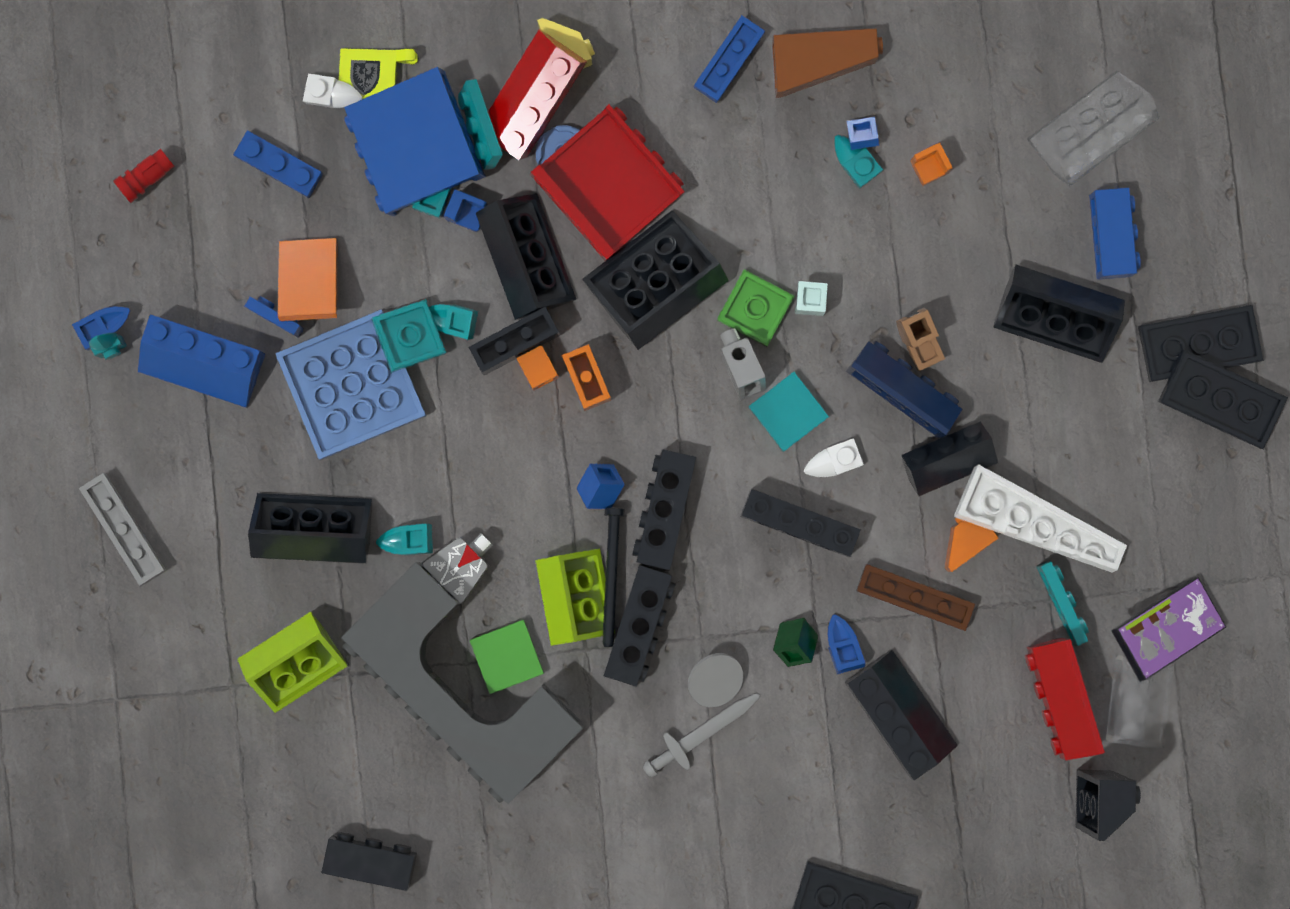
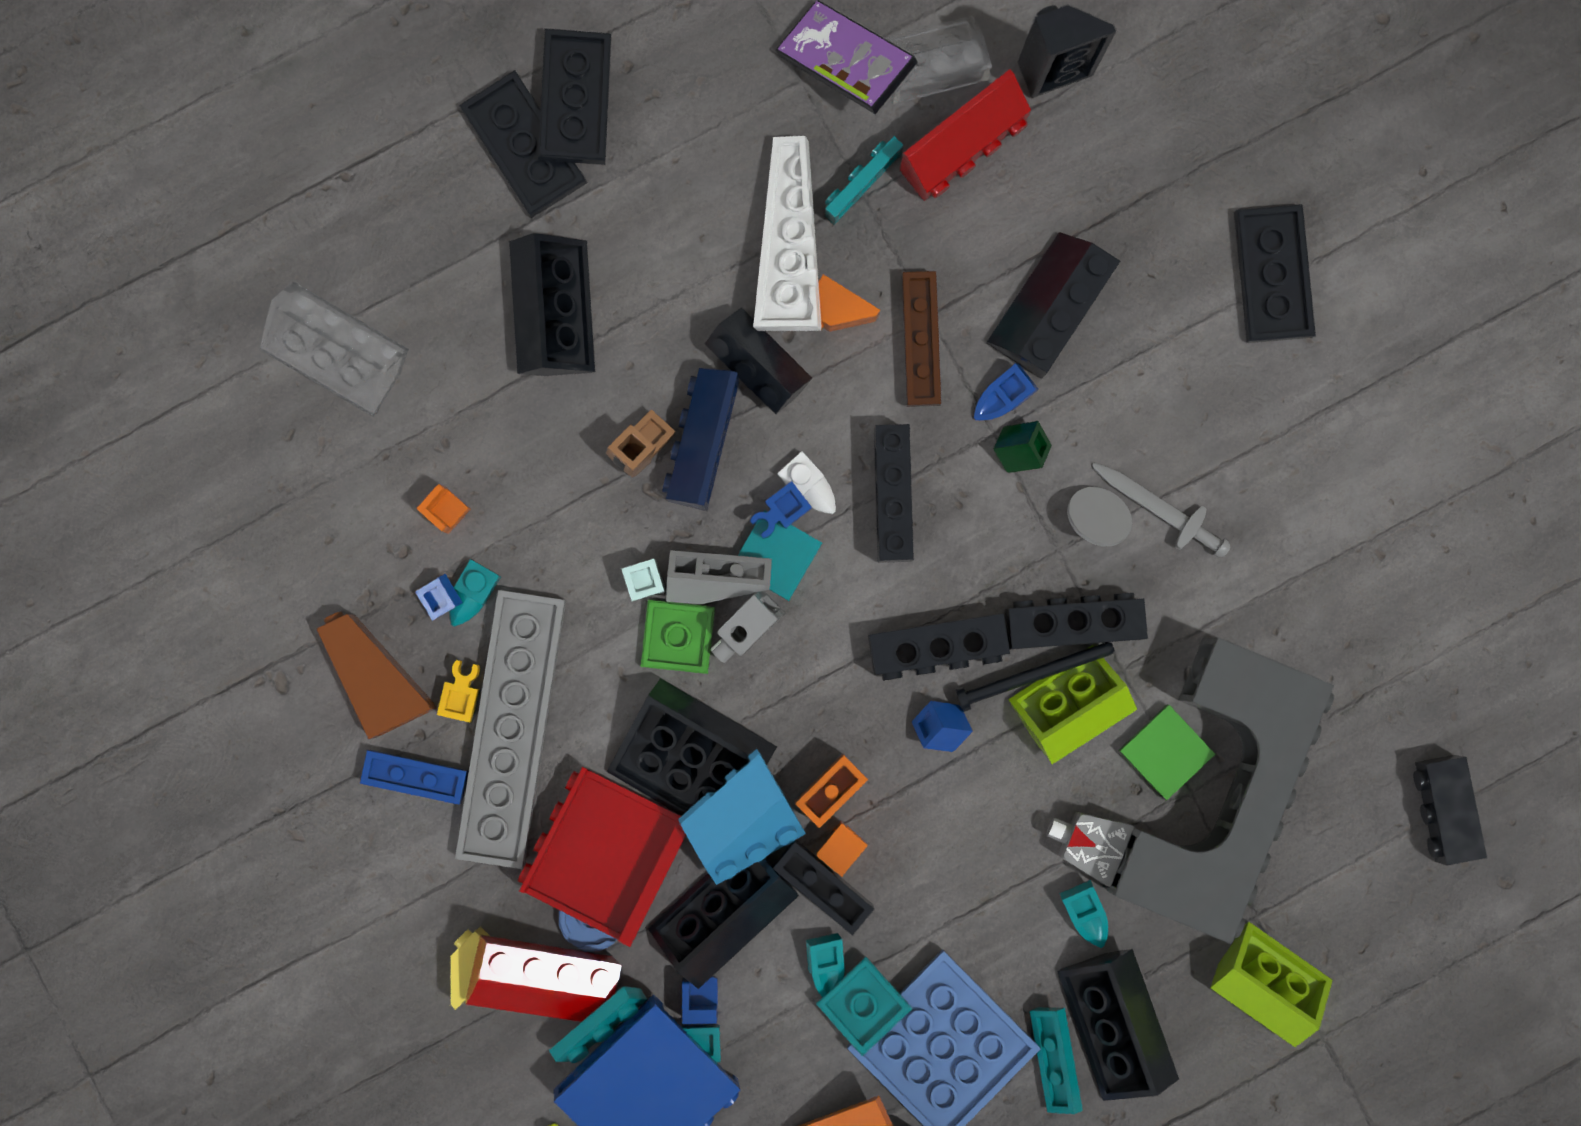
camera: 115 degrees left, 0 degrees up
(304, 468) = (1056, 1060): none -> teal plate
(592, 297) = (741, 821): none -> dark azure wedge
(736, 148) = (510, 729): none -> light grey plate
(776, 117) = (458, 698): none -> yellow plate
(791, 353) = (714, 577): none -> light grey slope
(823, 433) = (785, 507): none -> blue plate
(1114, 233) = (440, 281): blue brick -> none

